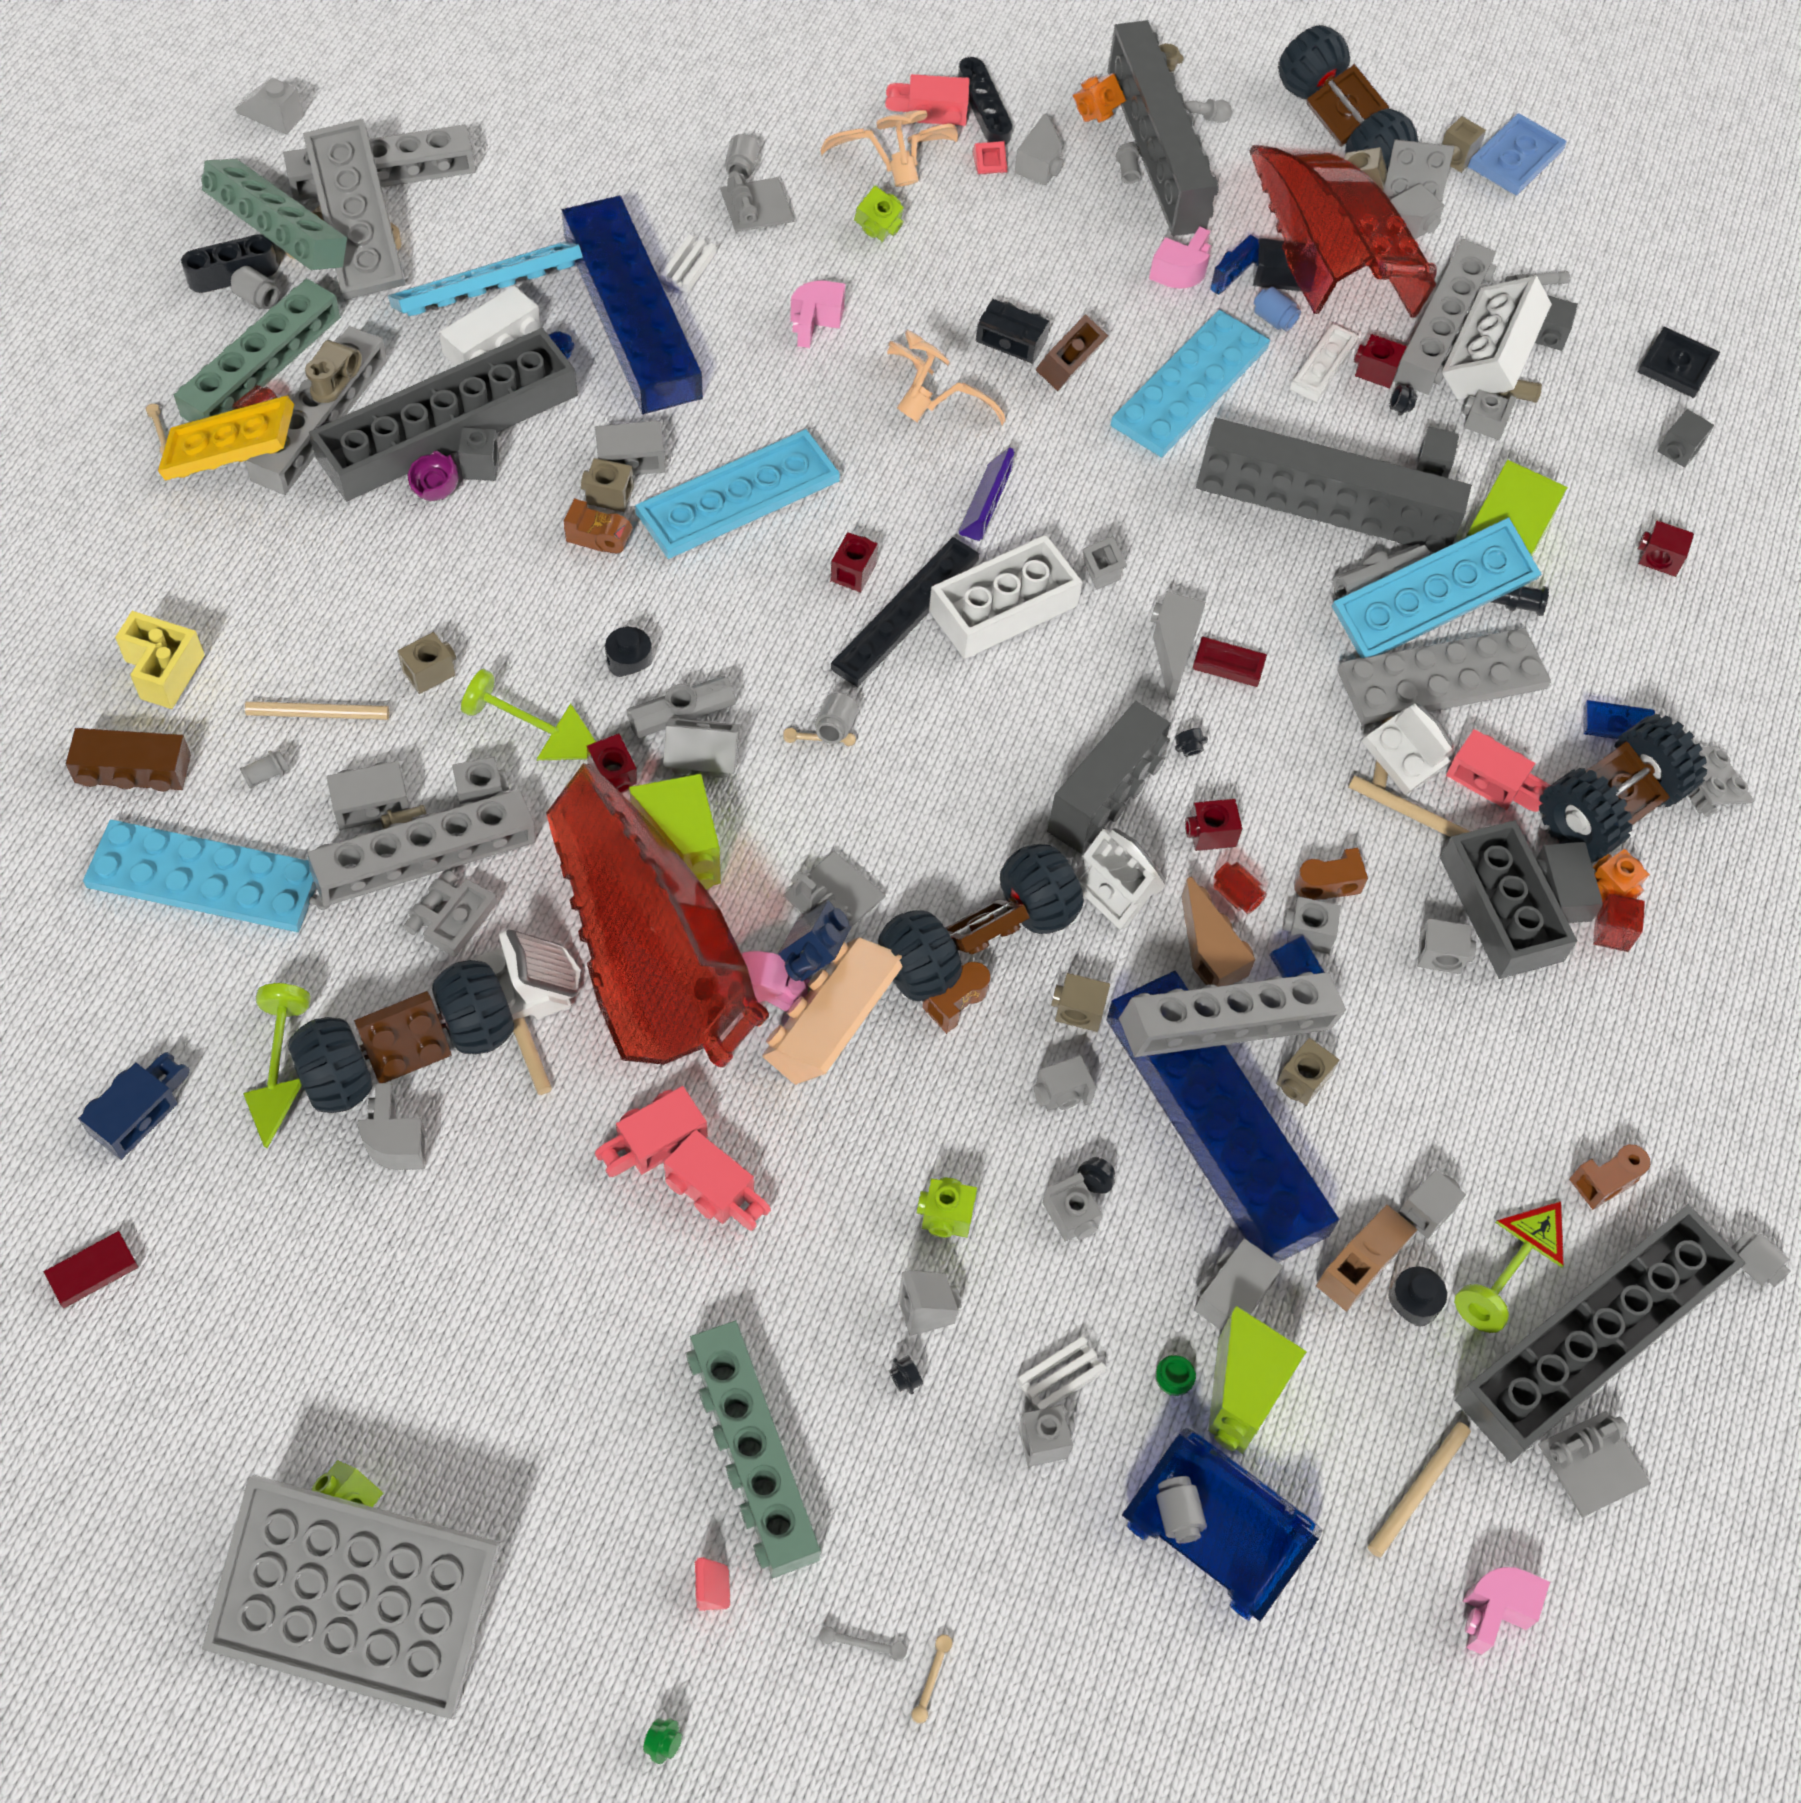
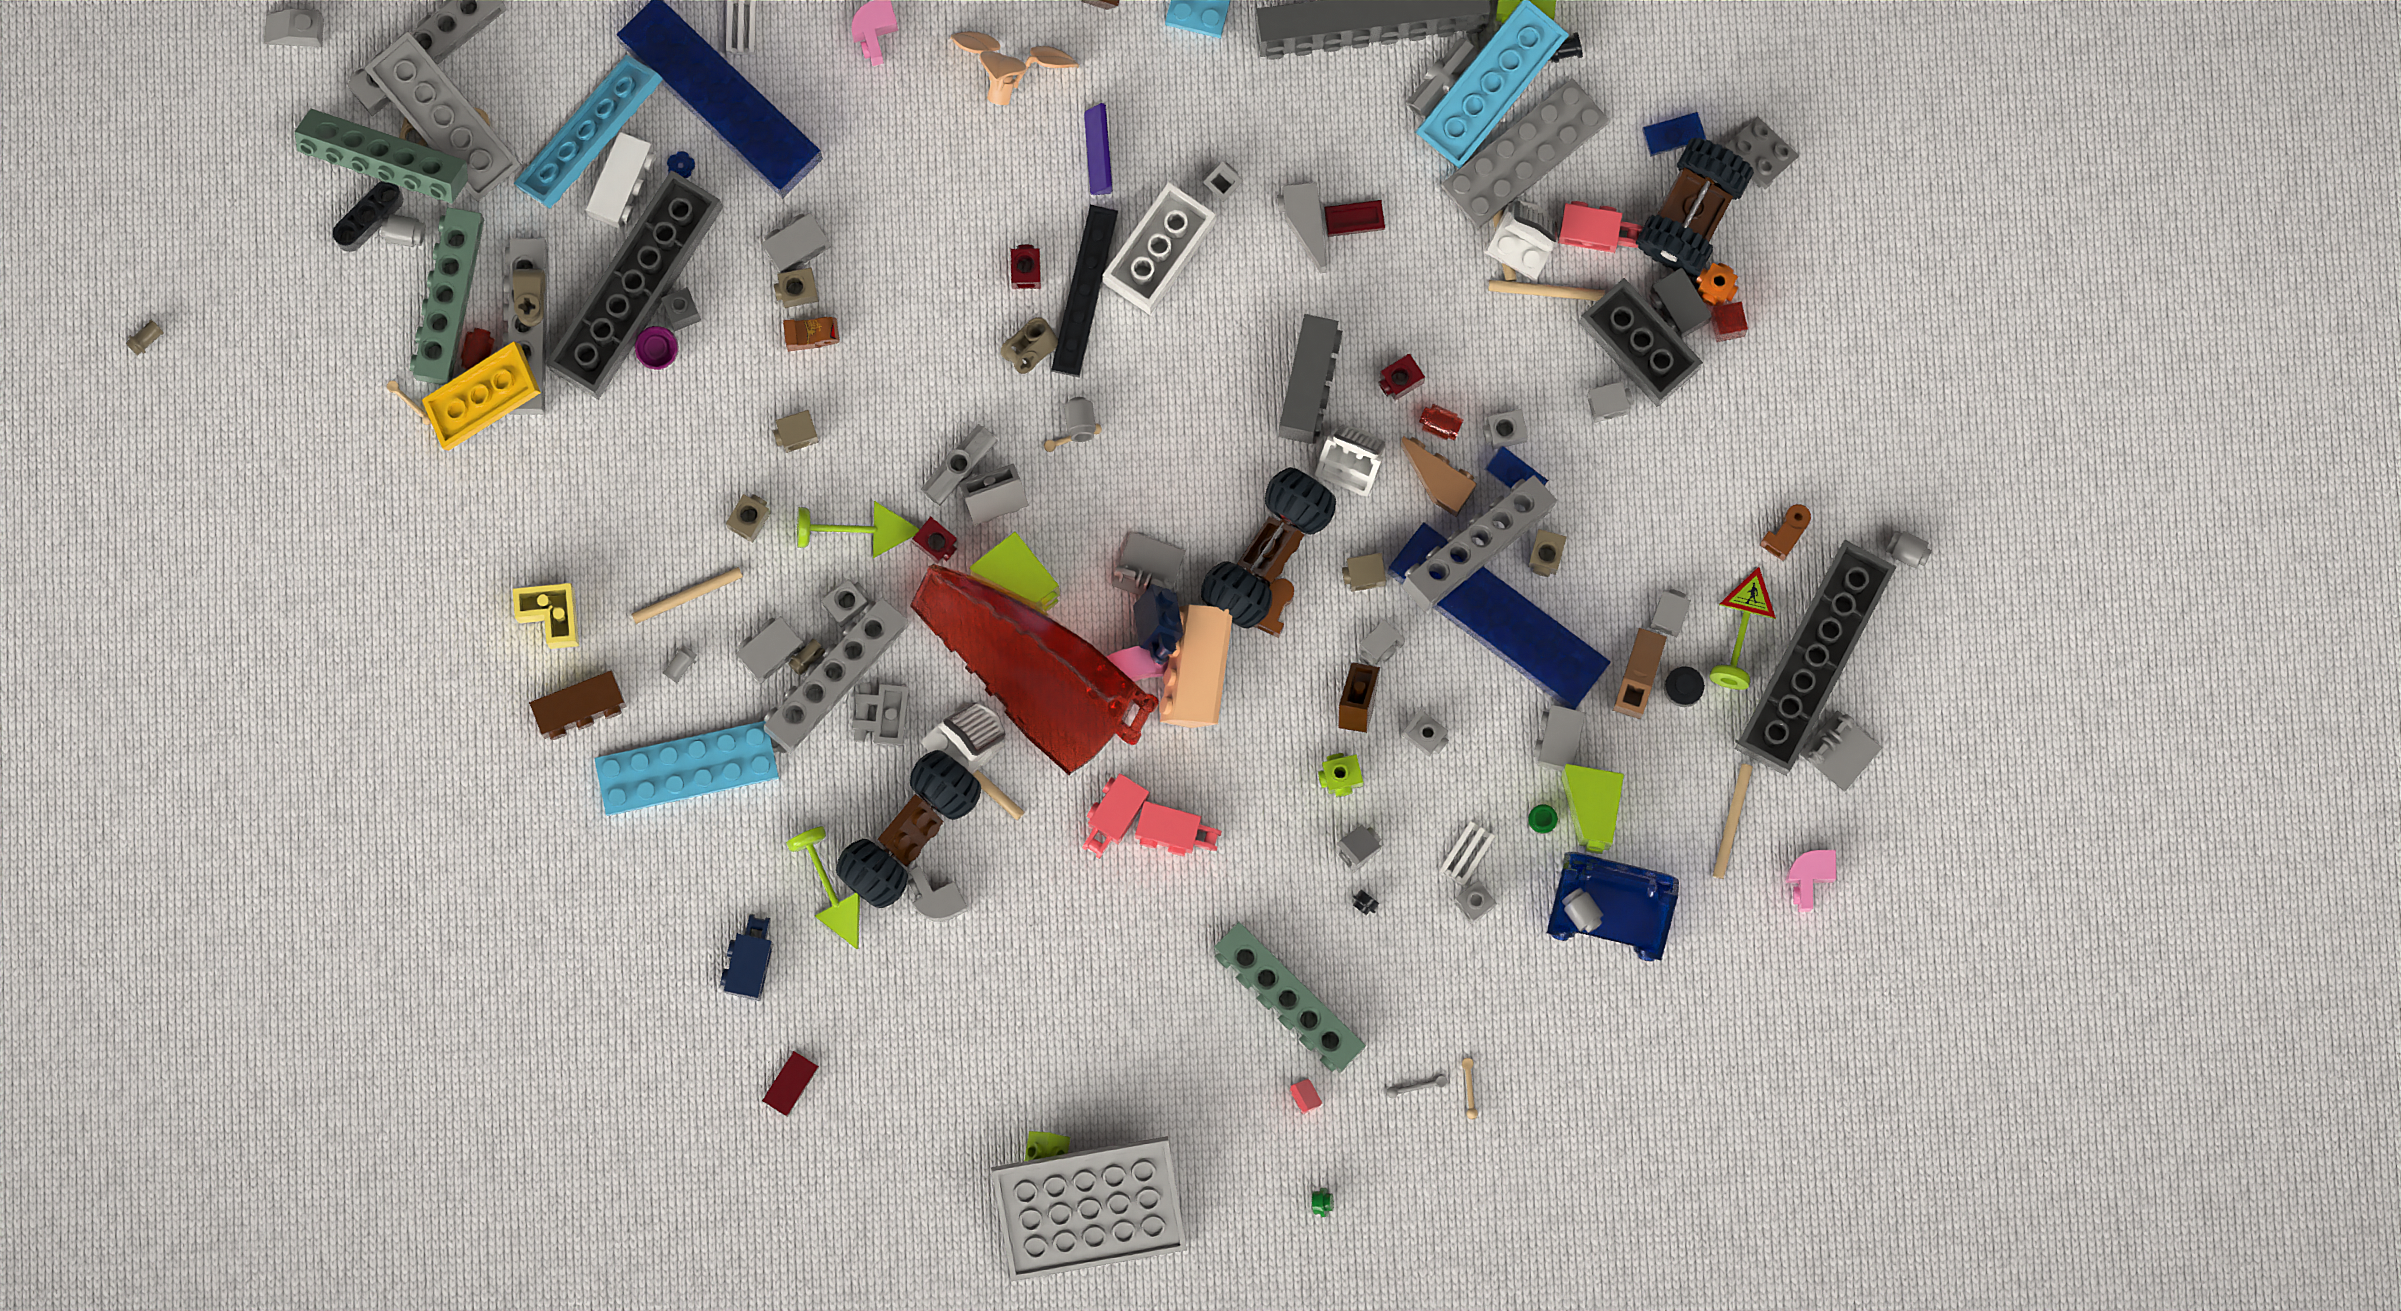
camera: 20 degrees left, 20 degrees up
(527, 606) = (795, 431): none -> dark tan brick
(628, 651) = (893, 434): black piece -> none
(737, 493) = (902, 244): medium azure plate -> none
(821, 626) = (1031, 344): none -> dark tan piece
(1009, 1132) = (1358, 697): none -> reddish brown slope
(1097, 1175) = (1431, 701): black plate -> none
(1190, 742) = (1354, 310): black plate -> none
(1332, 878) = (1498, 387): dark orange leg -> none

